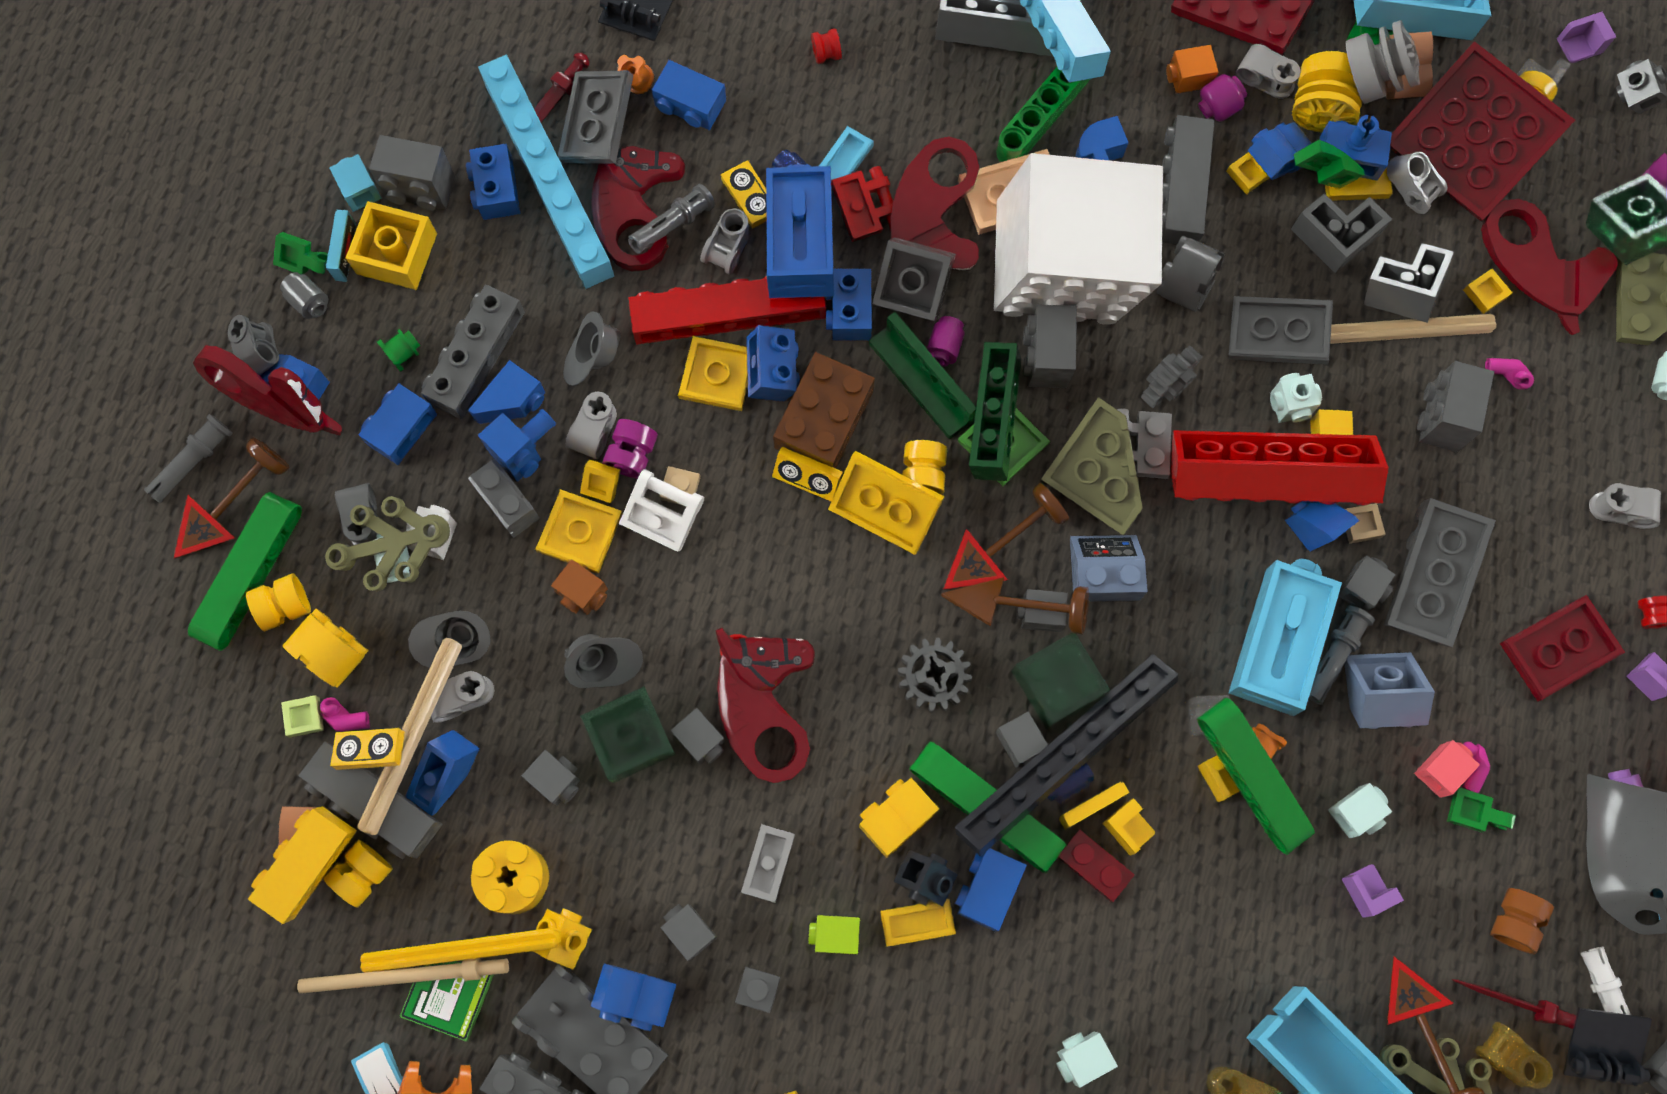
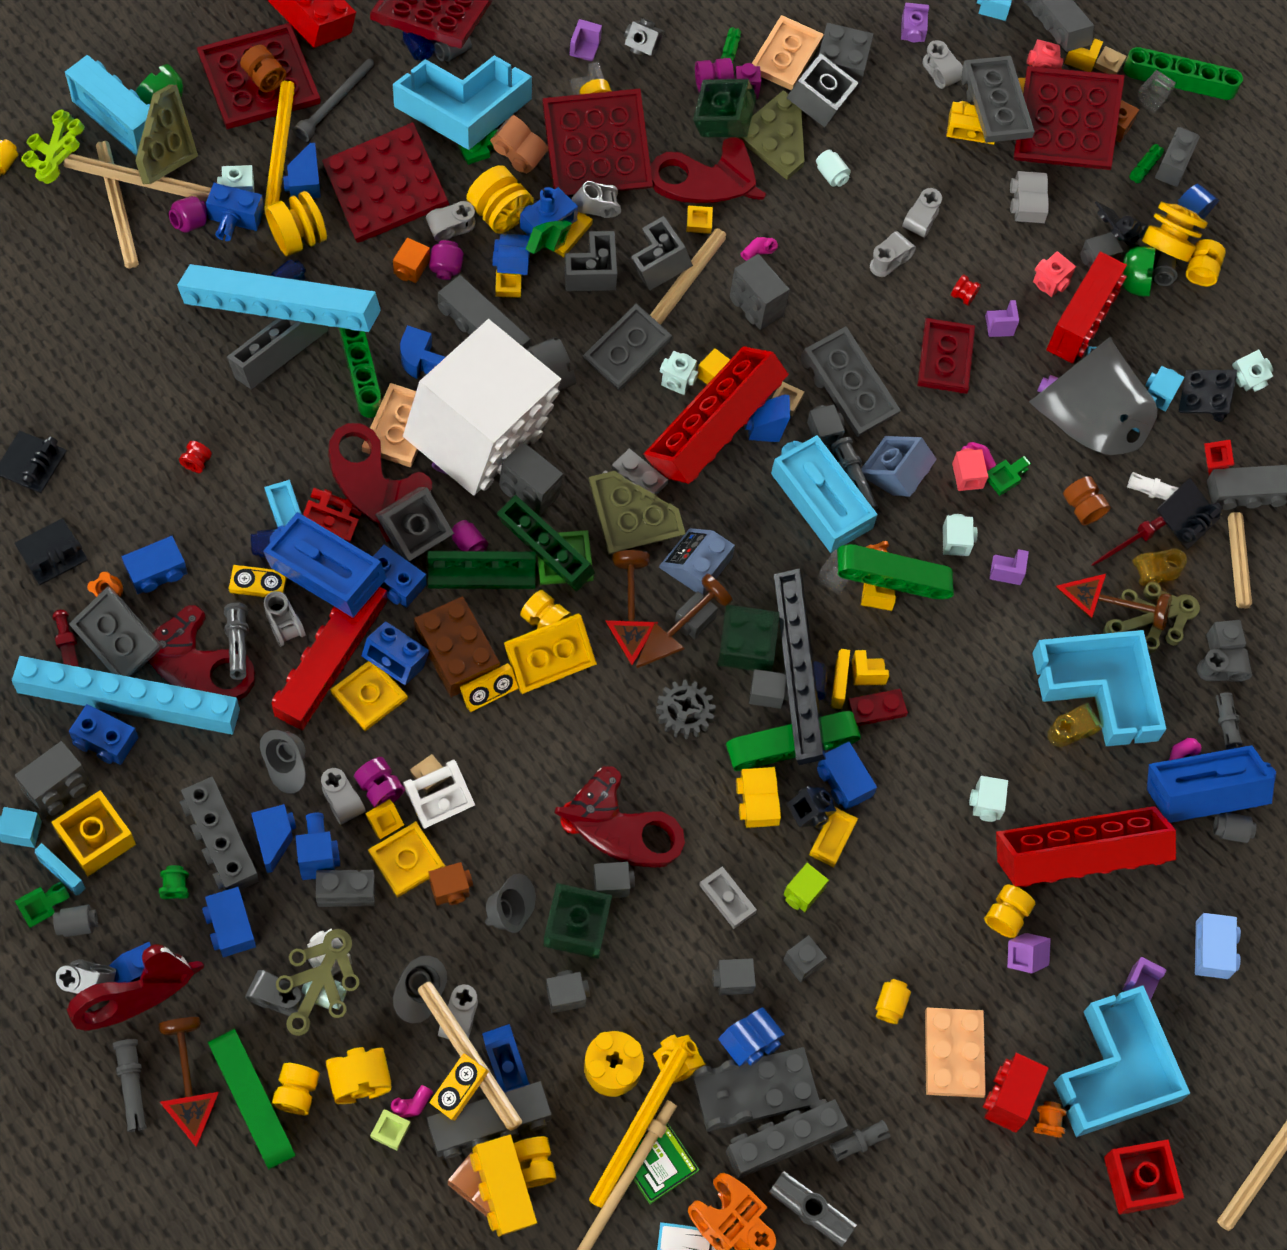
camera: 60 degrees left, 10 degrees down
(1171, 377) = (609, 428): dark grey gear -> none
(1383, 62) = (512, 154): light grey wheel -> none

